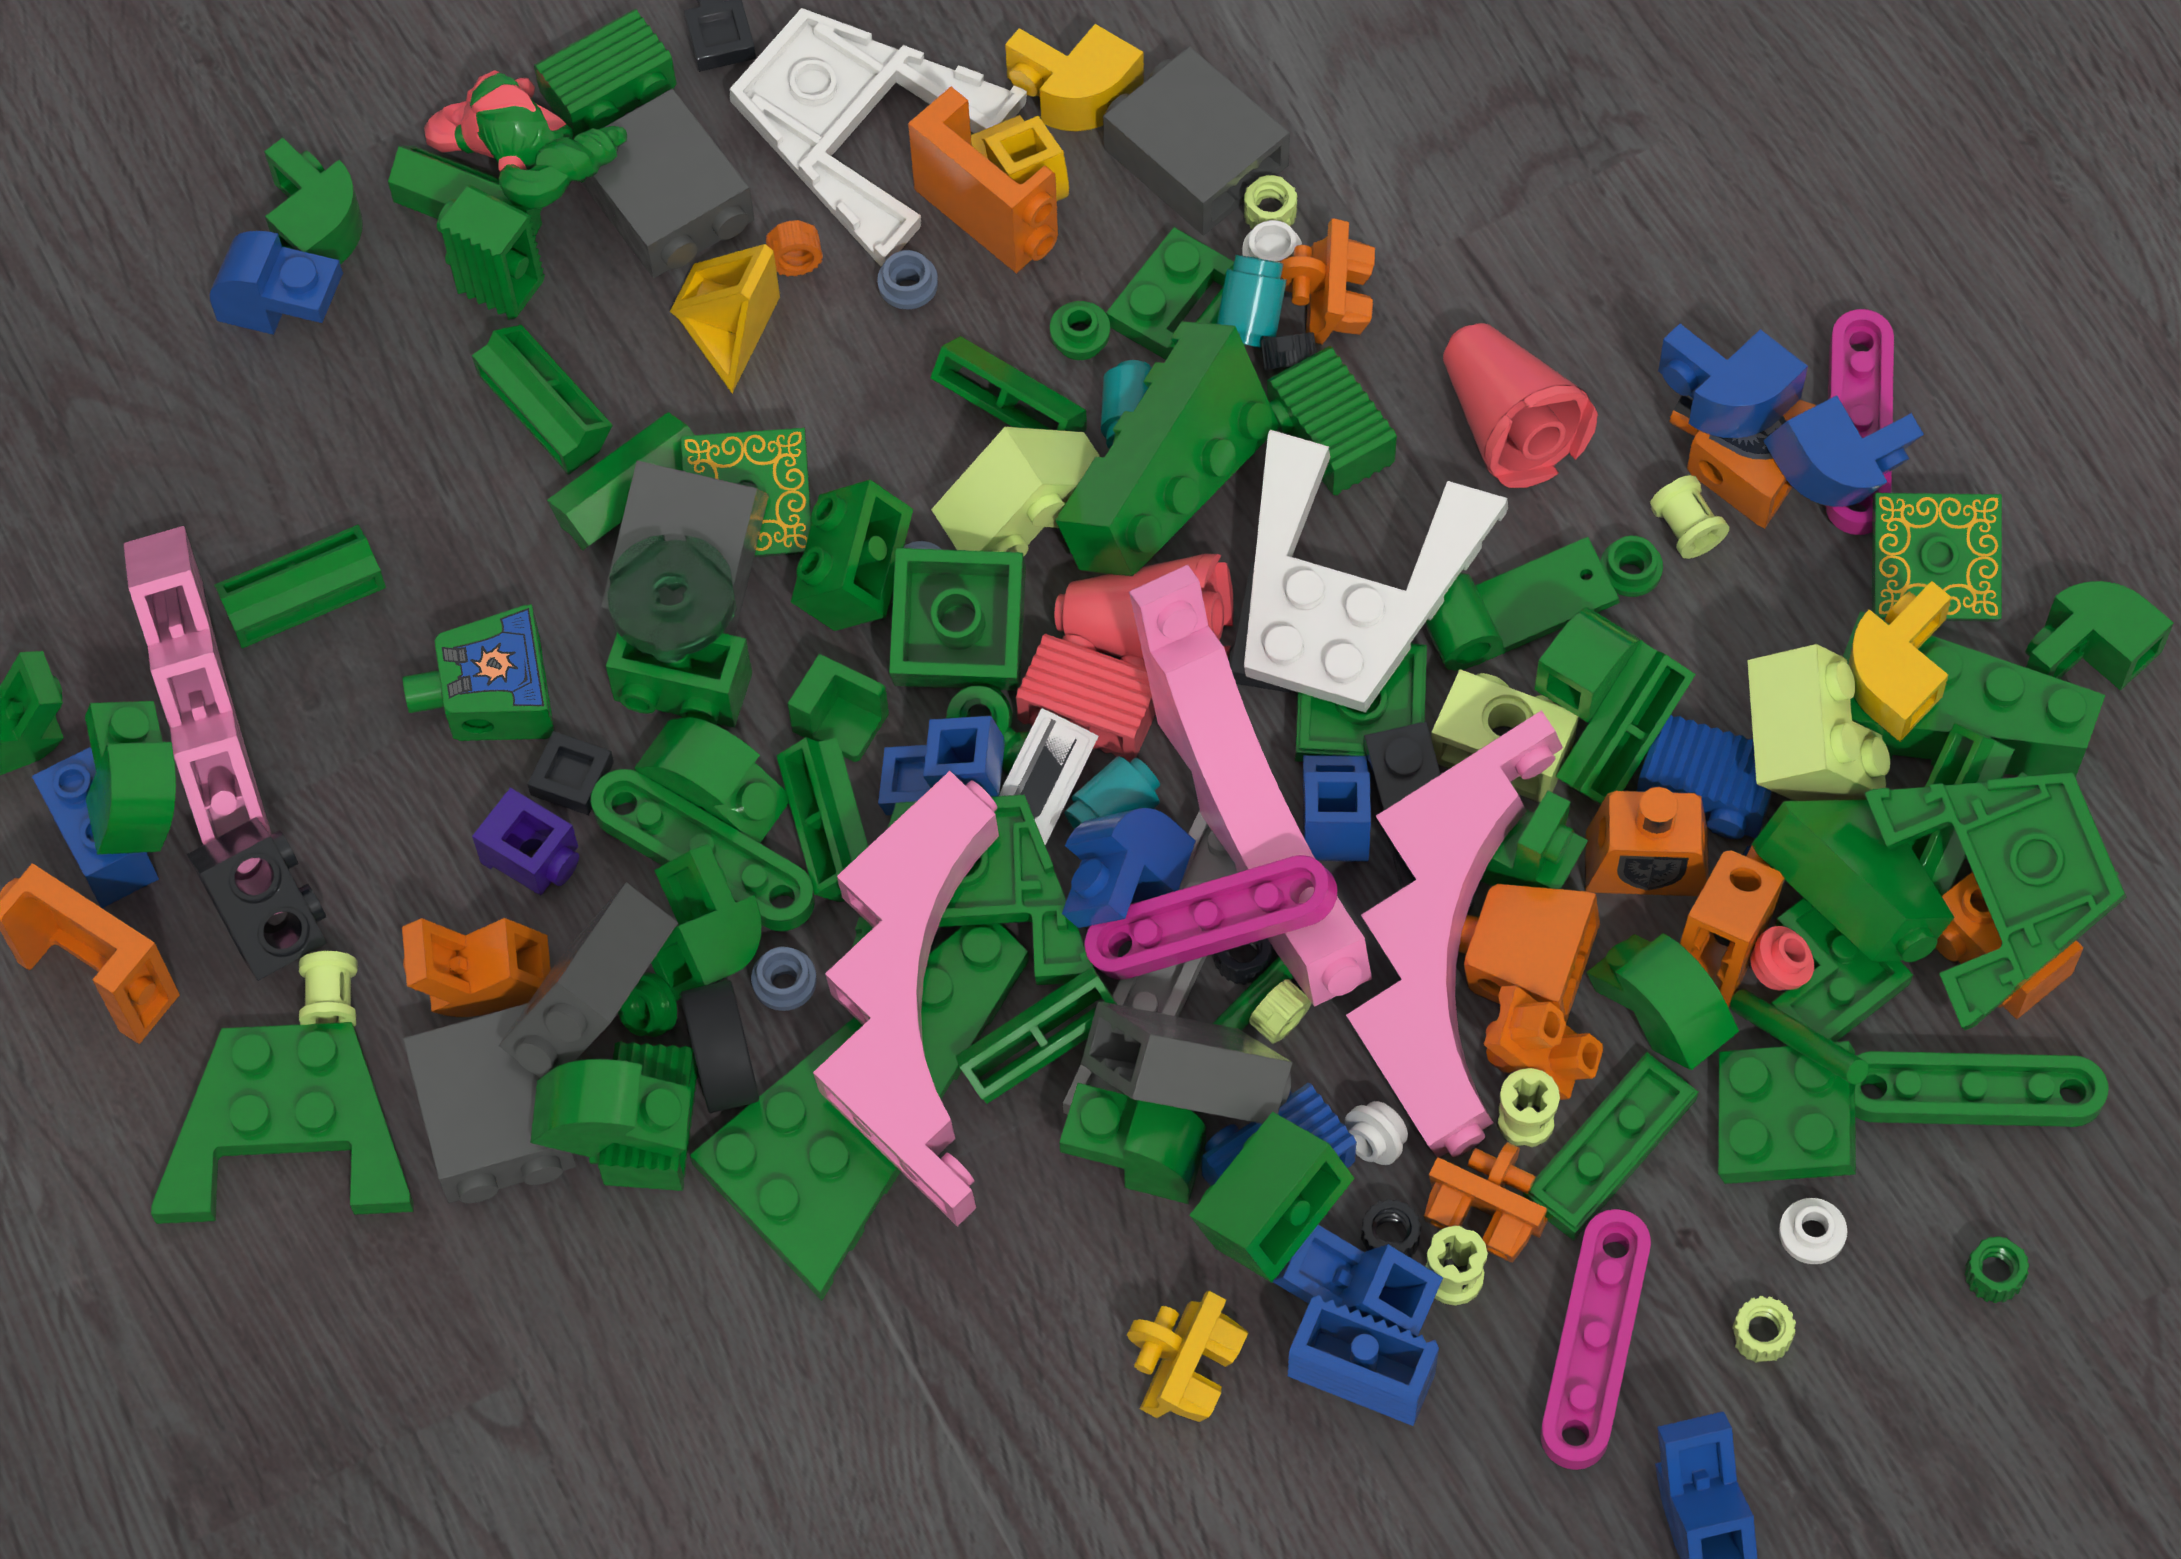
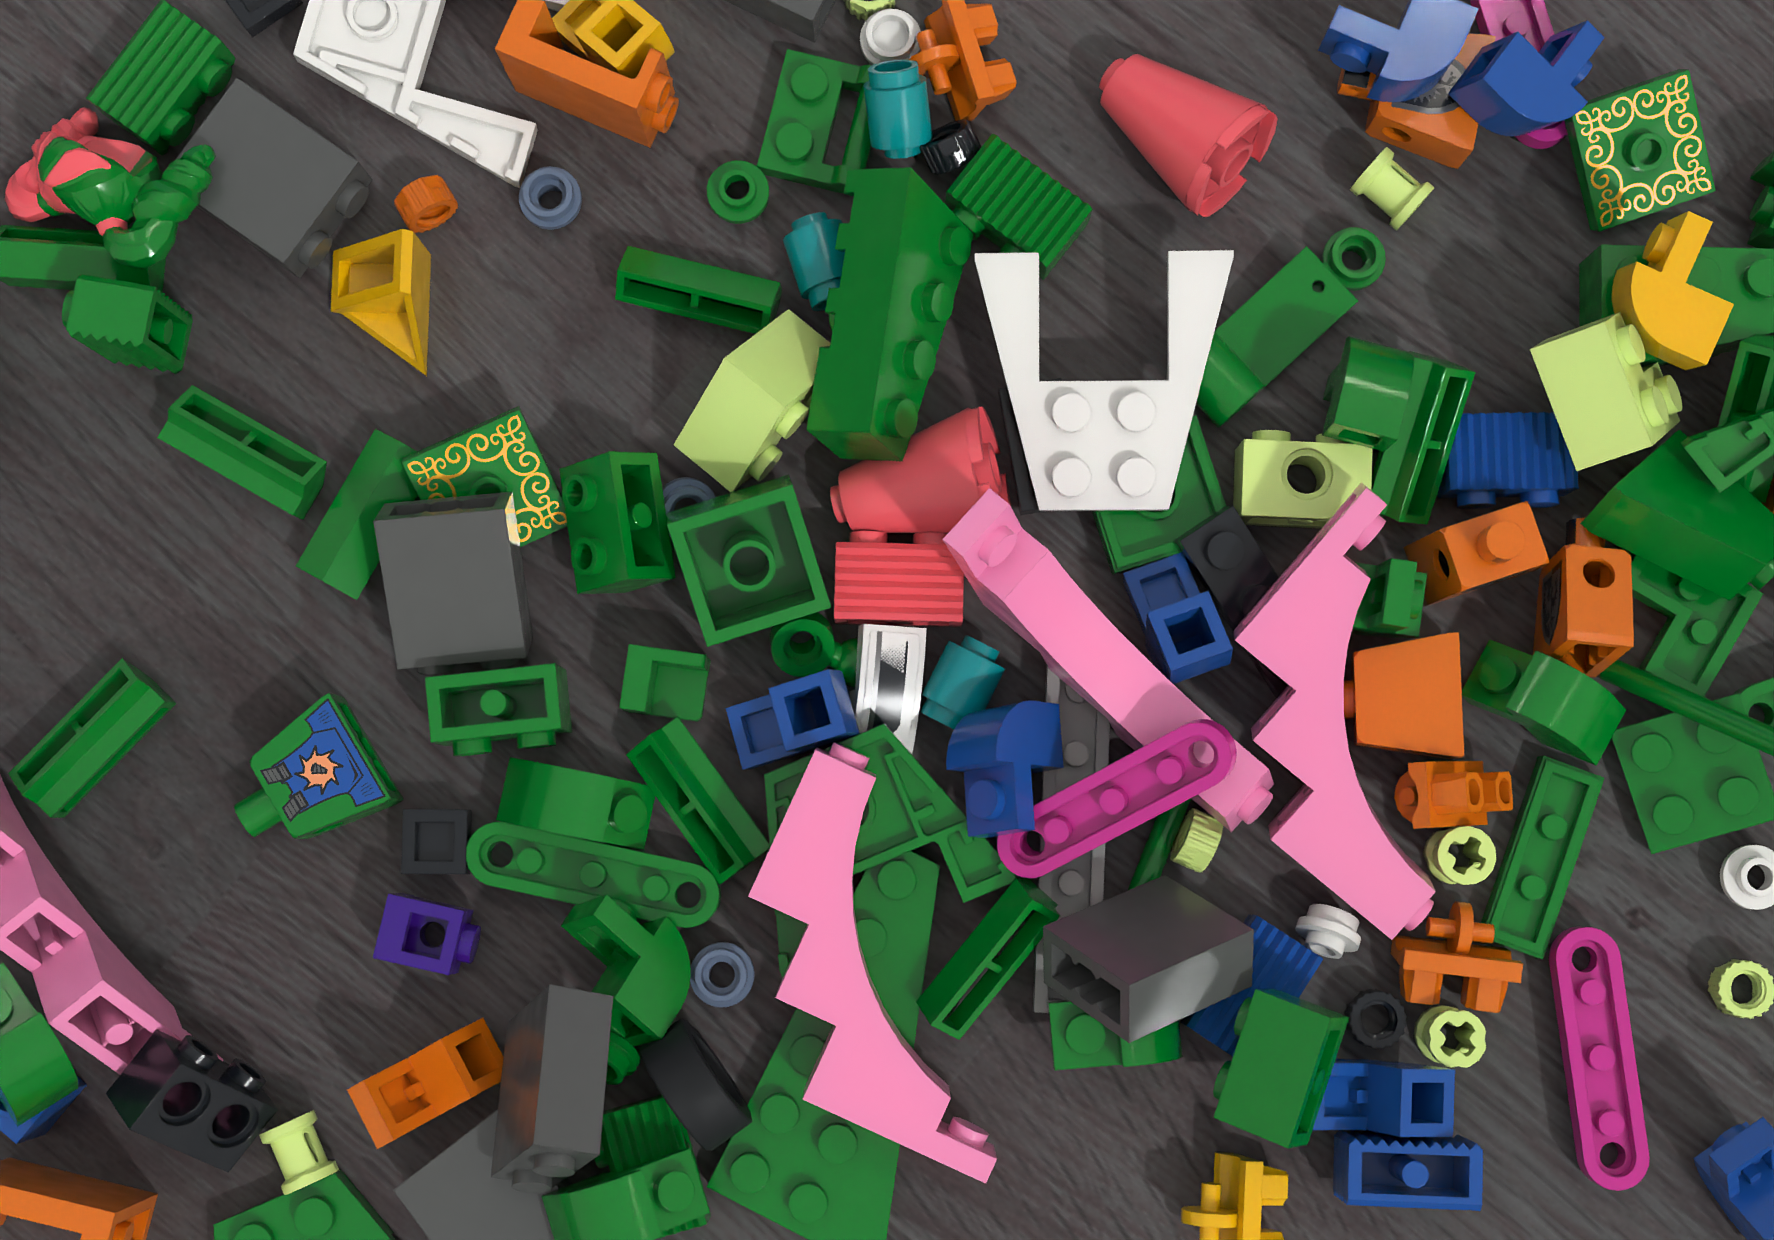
camera: 20 degrees left, 20 degrees up
(675, 629) = (456, 616): clear green plate -> none
(1782, 959) = (1653, 628): coral plate -> none

